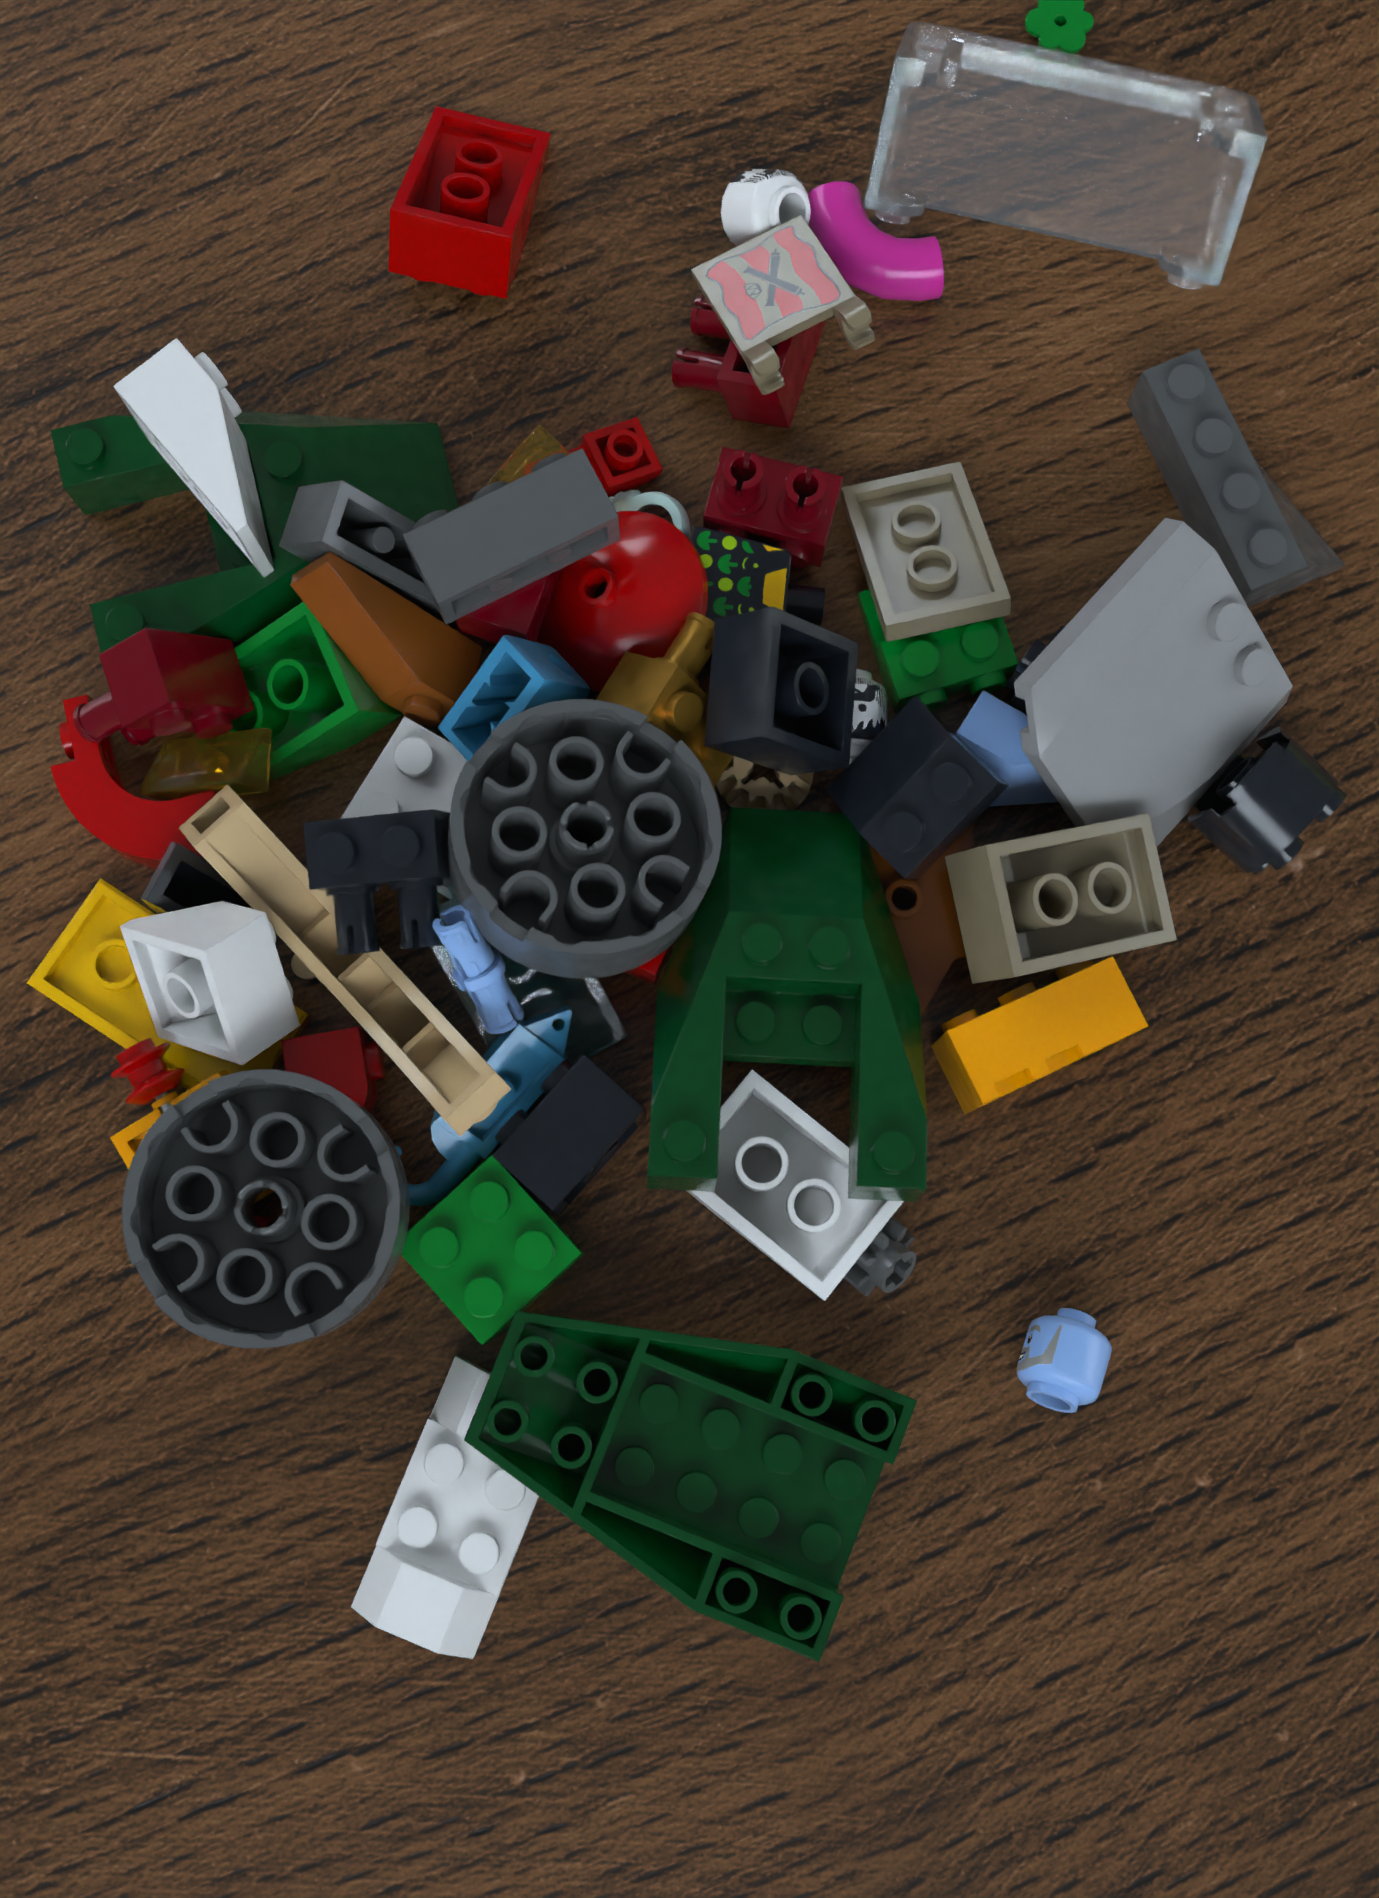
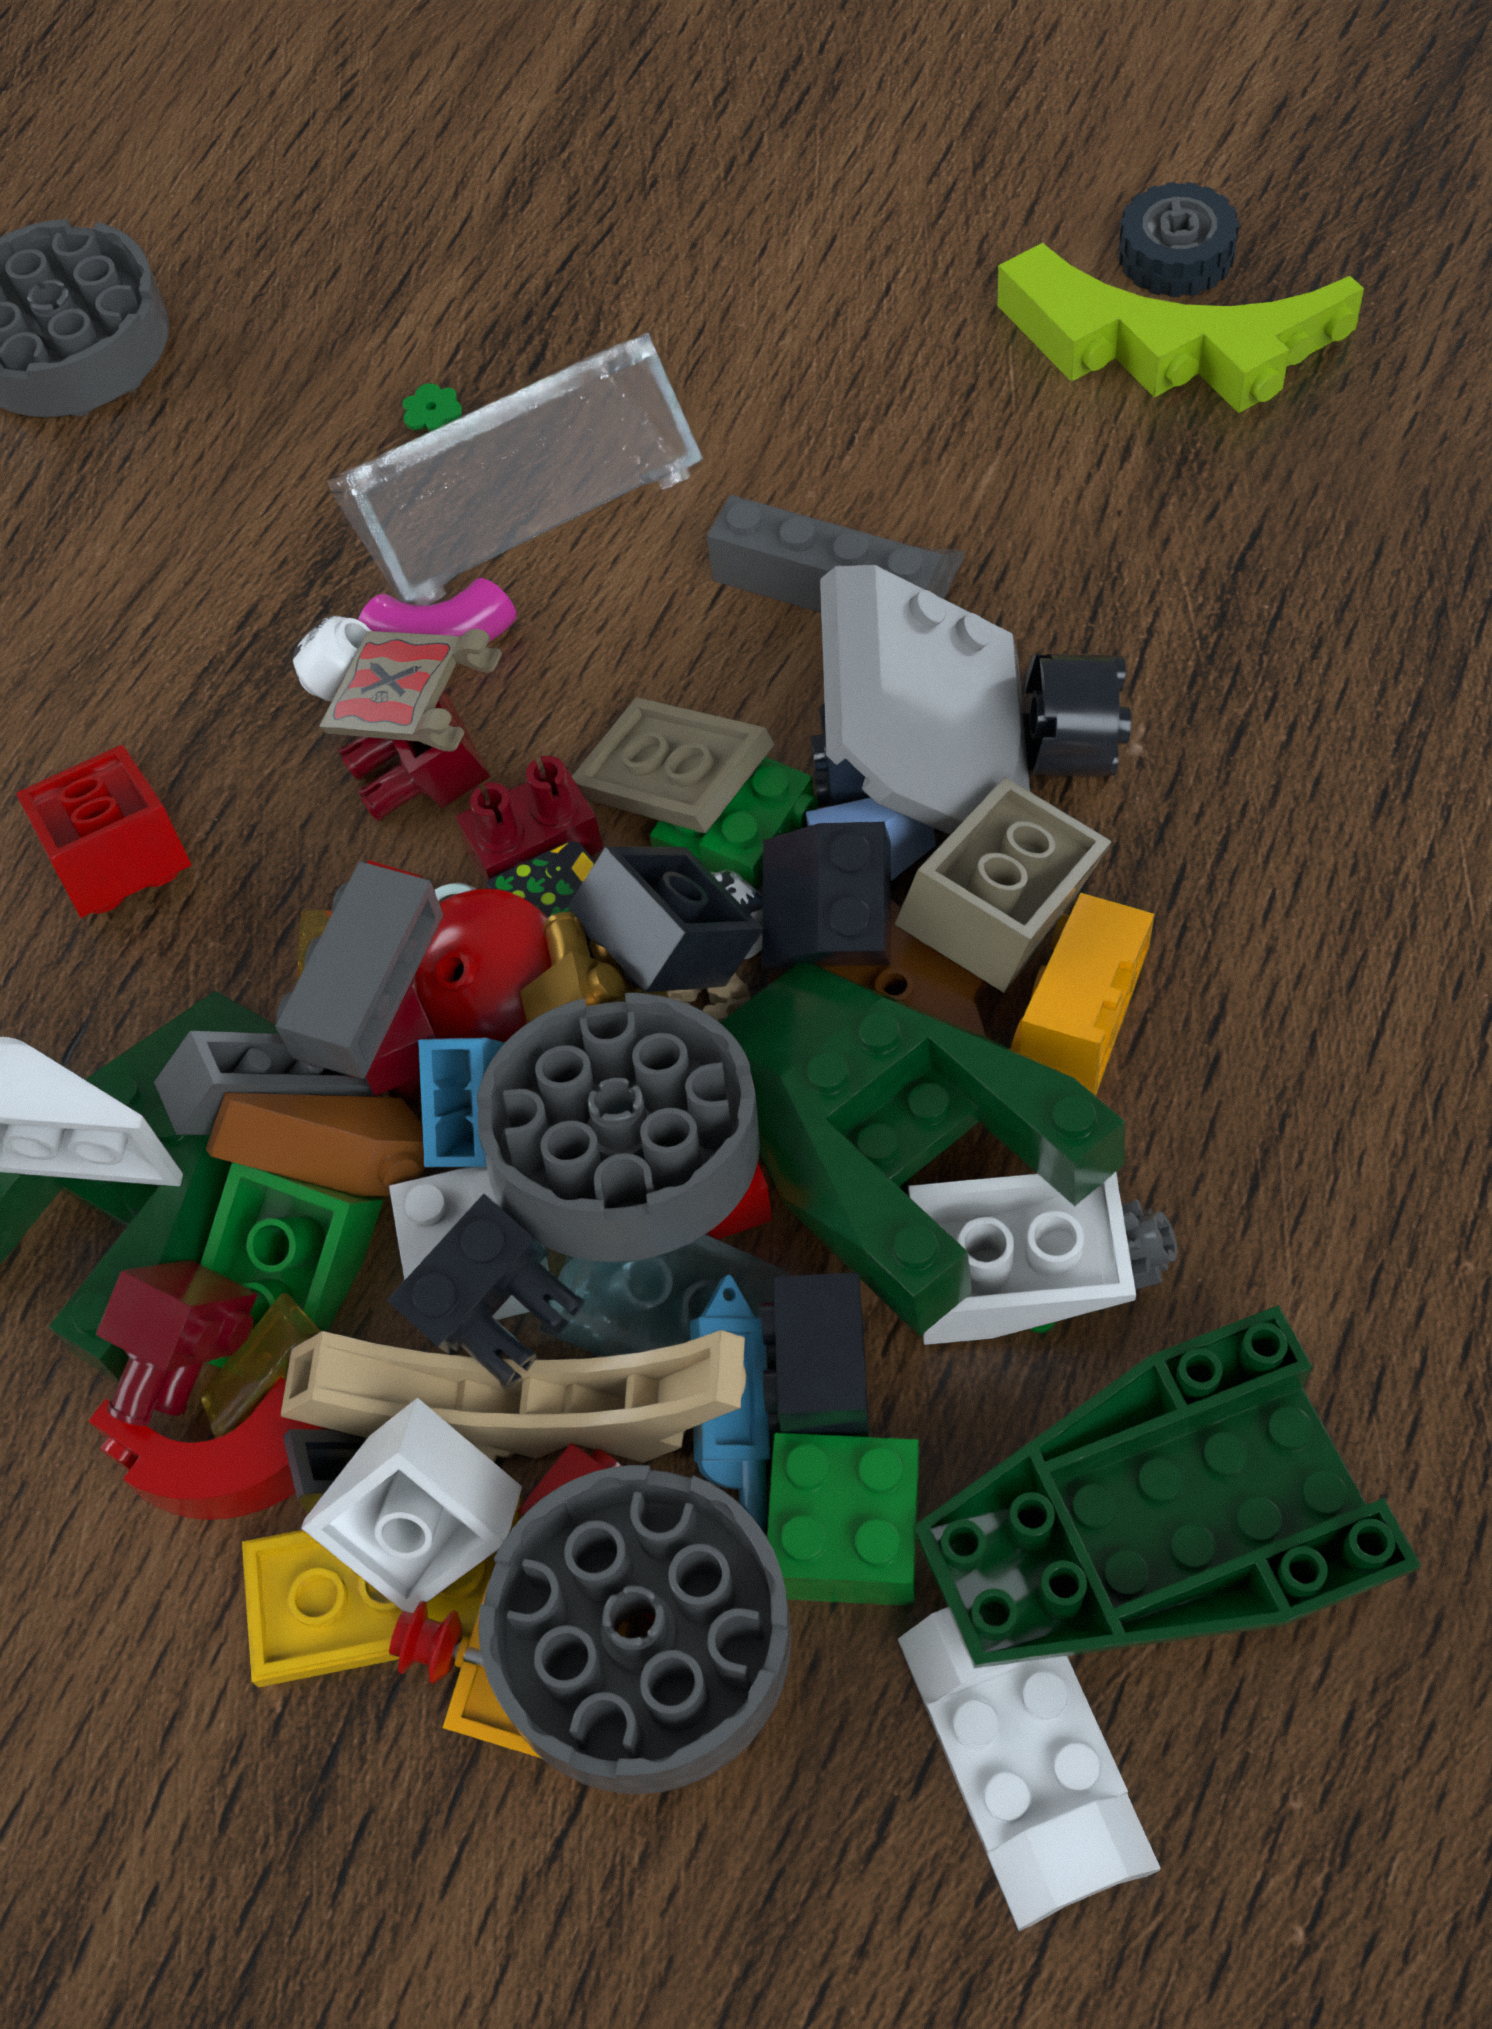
camera: 35 degrees left, 20 degrees down
(478, 970) = (628, 1297): light blue pin -> none
(1064, 1360) = (1348, 1192): light blue head -> none

